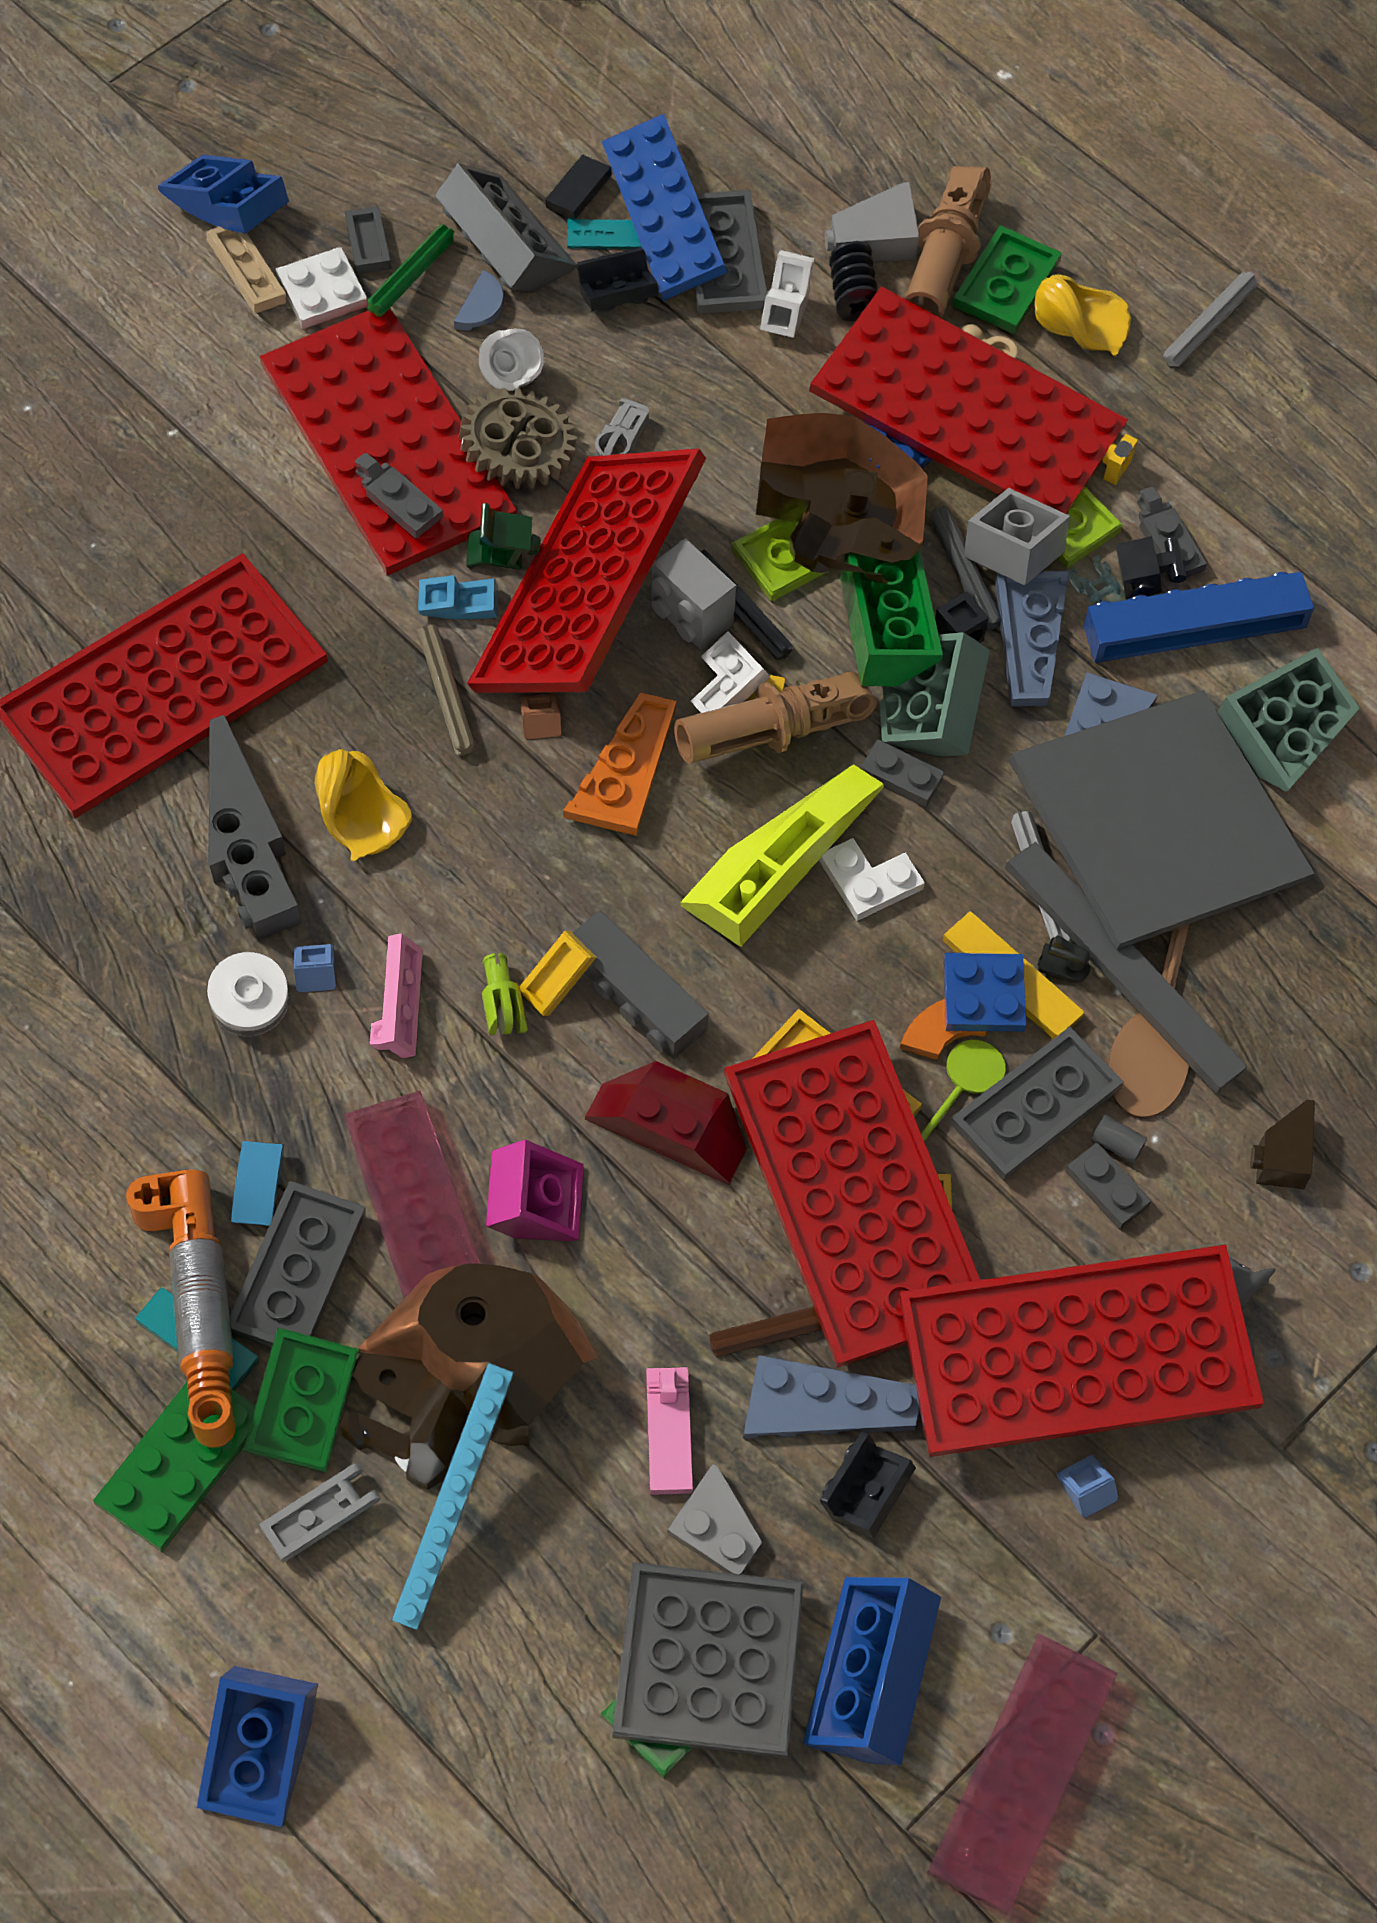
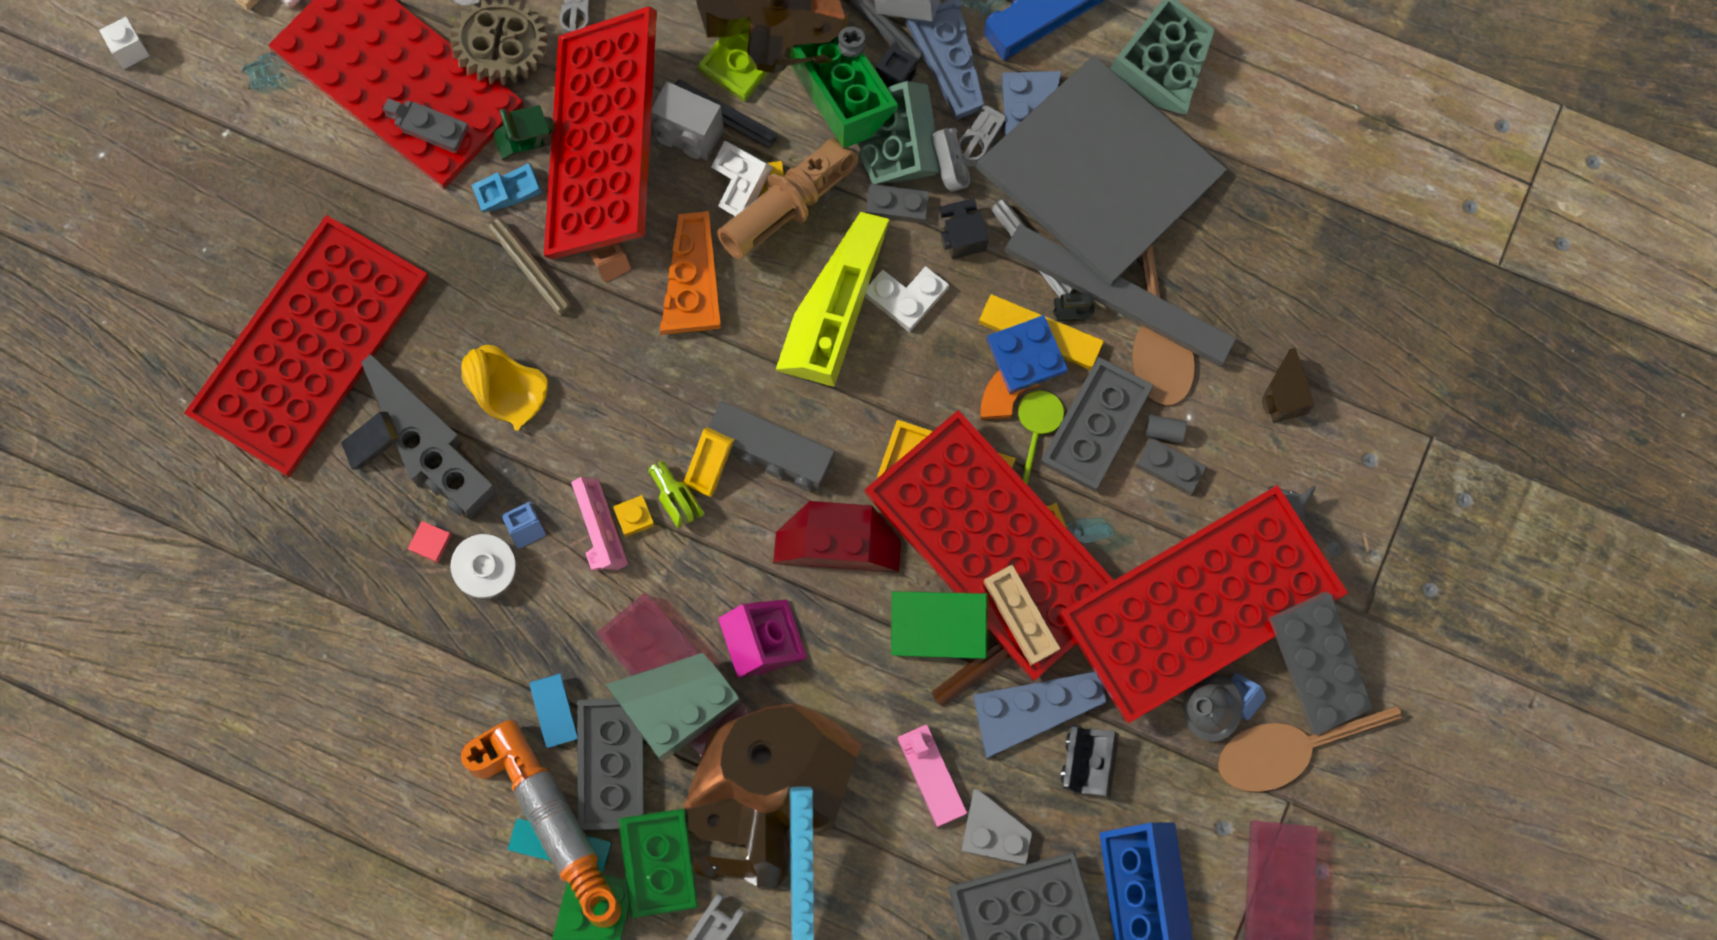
camera: 20 degrees left, 10 degrees up
(105, 299) = (124, 43): none -> white brick
(182, 808) = (369, 440): none -> black tile
(200, 945) = (429, 542): none -> coral tile
(242, 375) = (264, 60): none -> clear light blue piece
(401, 1226) = (675, 702): none -> sand green wedge
(445, 1004) = (633, 516): none -> yellow plate
(750, 1255) = (939, 624): none -> green tile
(851, 1279) = (1021, 615): none -> tan plate
(918, 571) = (848, 35): none -> dark grey bush
(967, 827) = (964, 232): none -> black brick
(979, 1219) = (1092, 529): none -> clear light blue piece
(983, 744) = (950, 160): none -> light grey piece
(1036, 729) = (983, 133): none -> light grey piece
(1044, 1483) = (1213, 708): none -> dark grey hat
(1105, 1570) = (1278, 752): none -> medium nougat piece
(1198, 1477) = (1320, 663): none -> dark grey plate

